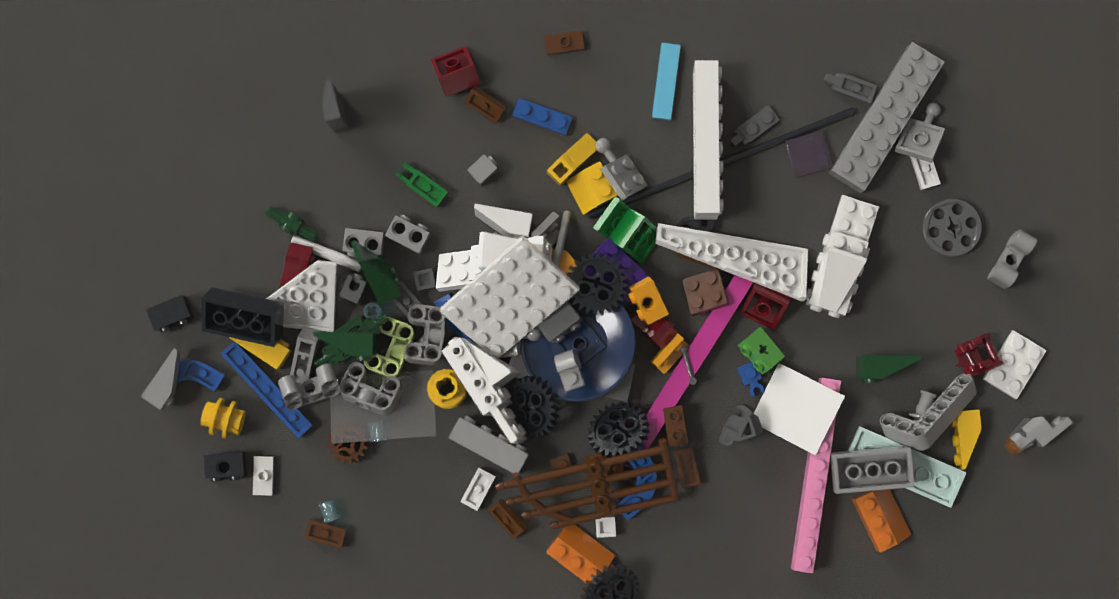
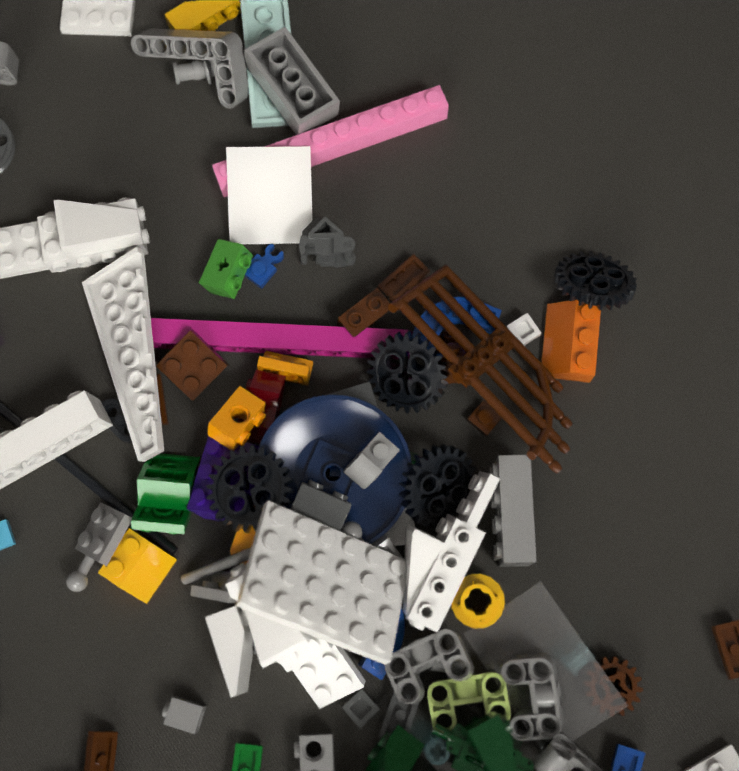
camera: 115 degrees left, 10 degrees down
(329, 511) = (705, 660): clear light blue bush -> none
(478, 489) = (569, 497): white plate -> none
(507, 518) = (582, 443): reddish brown plate -> none
(542, 116) = (80, 678): blue plate -> none
(572, 159) = (114, 609): yellow slope -> none
(692, 380) = (303, 323): dark grey hinge -> none
(764, 305) = (172, 292): dark red slope -> none
(875, 367) = (174, 133): dark green slope -> none
(881, 518) = (343, 51): orange slope -> none
(971, 360) = (113, 50): dark red piece -> none

